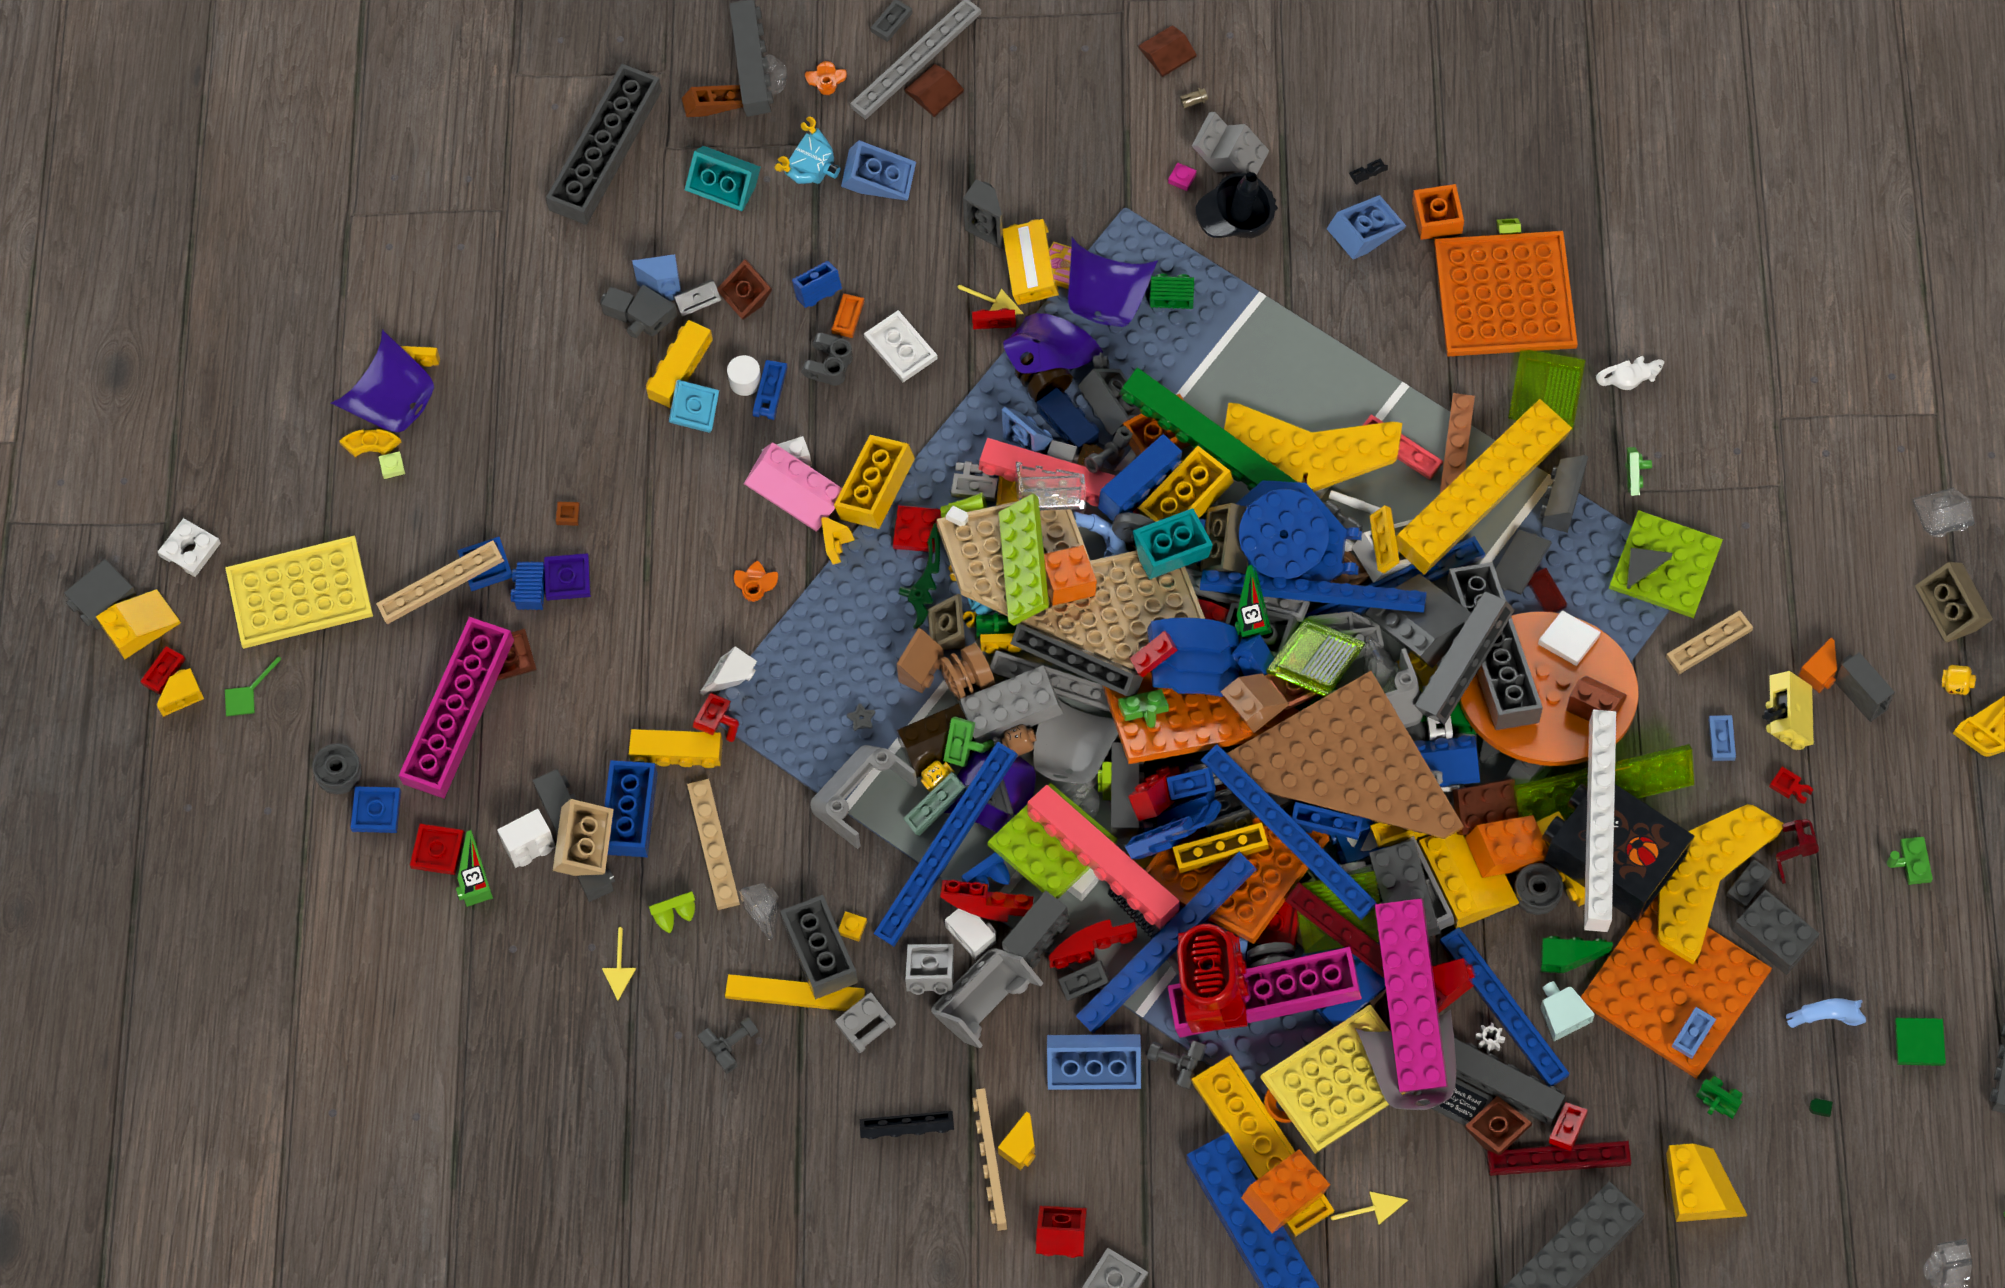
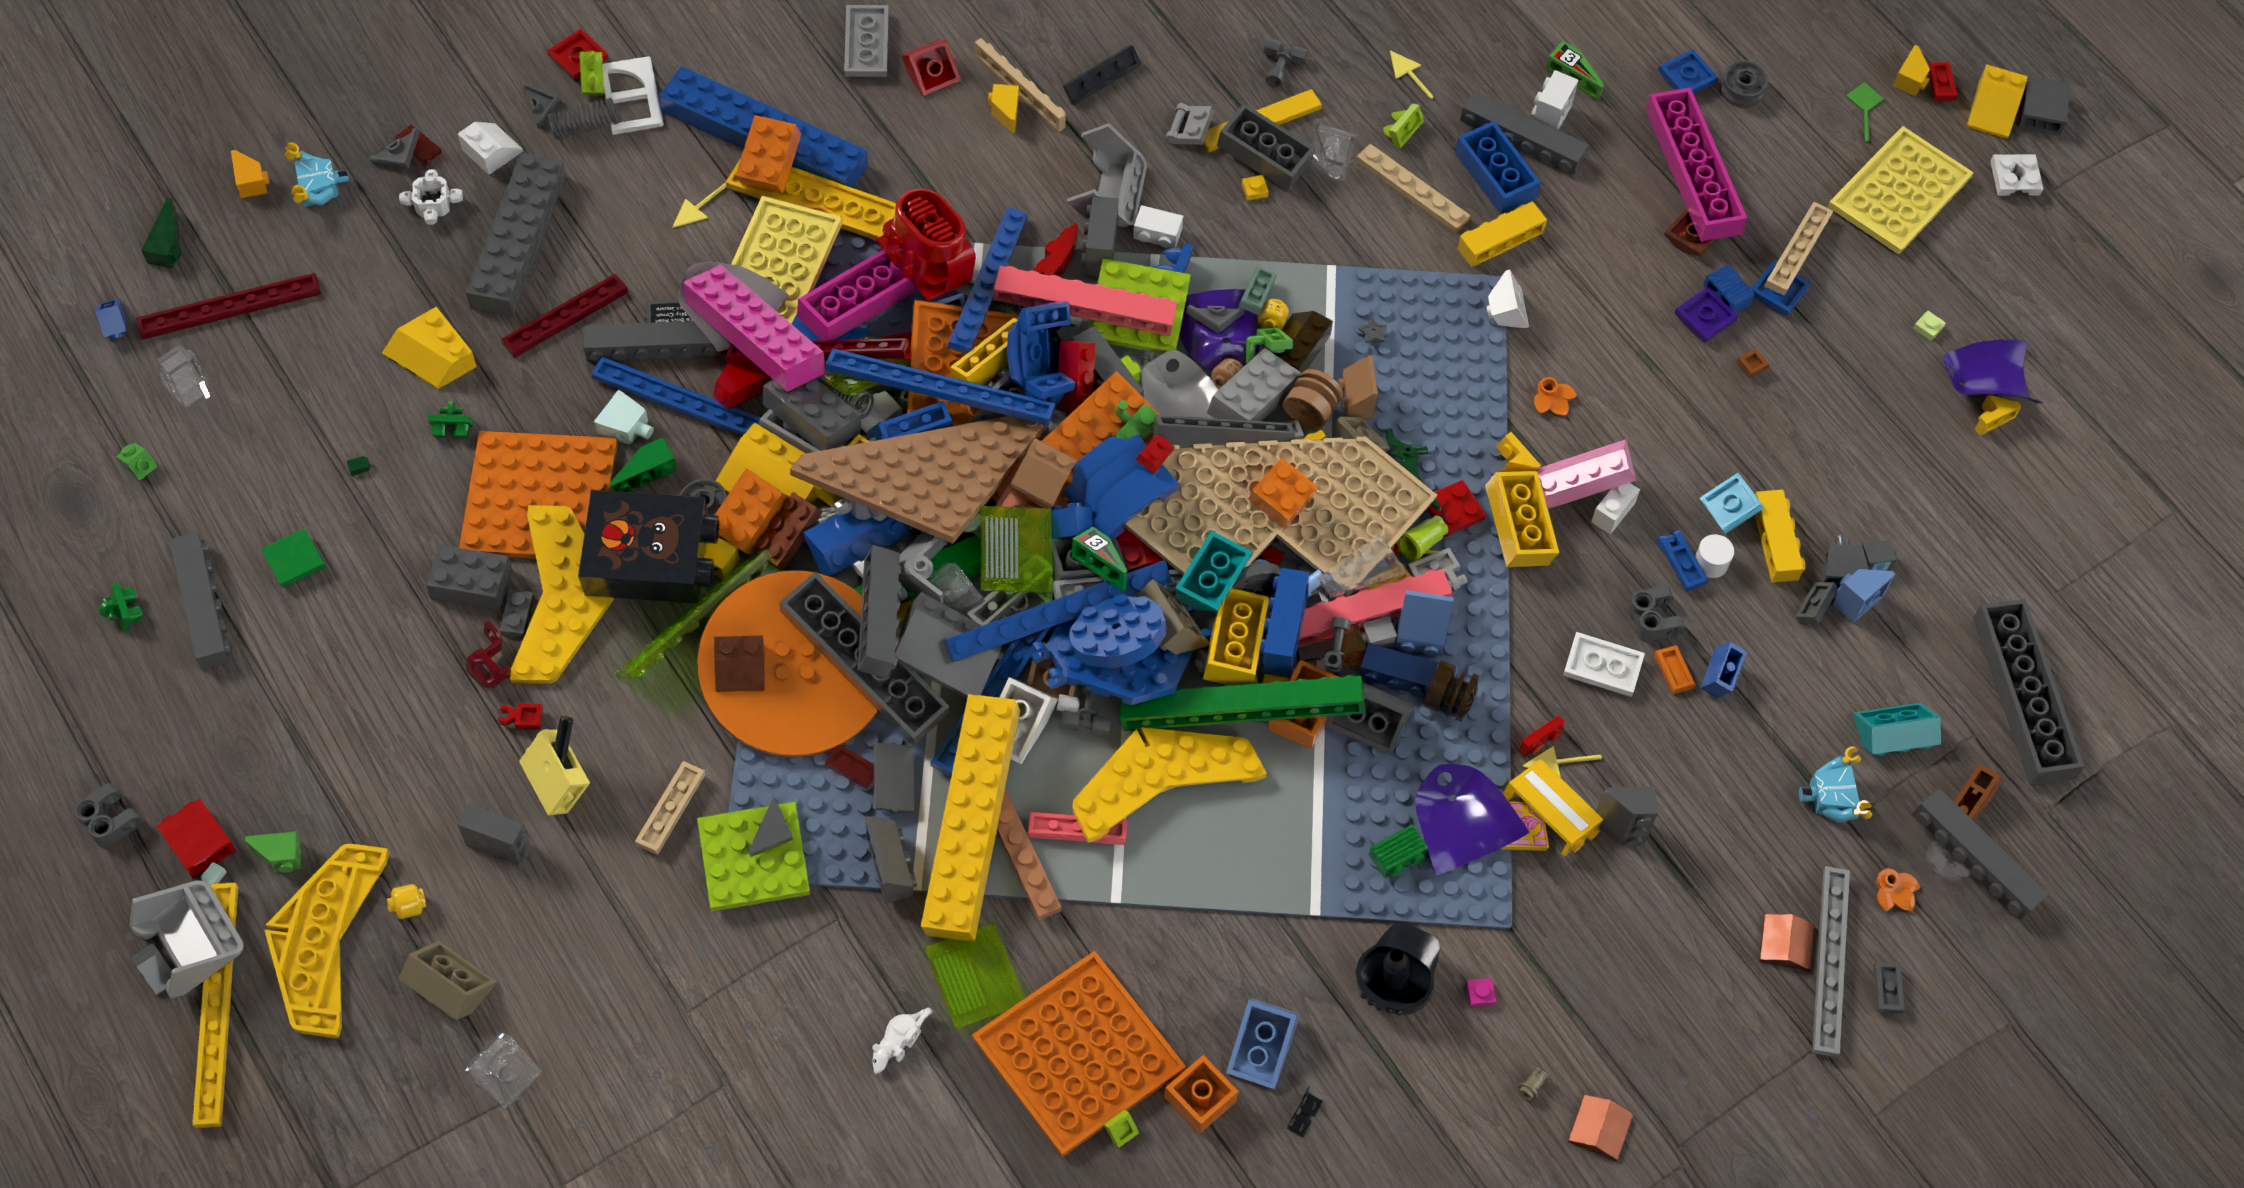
camera: 140 degrees right, 5 degrees down
(370, 440) = (1968, 333): yellow tile -> none
(437, 849) = (1617, 72): red plate -> none
(582, 839) = (1508, 112): tan slope -> none
(713, 714) = (1491, 261): red plate -> none
(745, 290) = (1783, 633): copper slope -> none
(830, 801) = (1336, 294): light grey windscreen -> none
(878, 172) = (1763, 817): medium blue slope -> none
(929, 968) = (1169, 183): light grey plate -> none
(945, 844) = (1224, 263): blue plate -> none
(957, 516) = (1421, 504): white piece -> none
(978, 901) = (1160, 240): red slope -> none
(1023, 559) = (1331, 481): lime plate -> none
(1059, 347) = (1468, 727): dark purple piece -> none
(1084, 980) = (1038, 236): dark grey plate -> none
(1094, 1062) = (992, 188): medium blue slope -> none
(1101, 362) = (1411, 743): dark grey plate -> none
(1229, 146) = (1454, 1038): light grey bracket -> none
(1270, 953) = (891, 313): dark grey wheel -> none
(1353, 502) = (1083, 749): white piece -> none
(1384, 539) = (1026, 696): yellow plate -> none
(1489, 1044) = (675, 367): white gear -> none
(1497, 1126) = (627, 304): copper slope -> none
(1568, 1126) = (569, 334): red plate -> none
(1569, 638) = (802, 721): white tile -> none
(1600, 821) = (669, 530): white brick -> none
(1633, 464) = (839, 928): bright green plate -> none
(1693, 1032) = (498, 451): medium blue plate -> none
(1722, 738) = (610, 724): medium blue plate -> none
(1821, 667) = (548, 840): orange slope -> none
(1835, 1008) = (378, 532): light blue piece -> none
(1914, 860) = (371, 714): bright green plate -> none

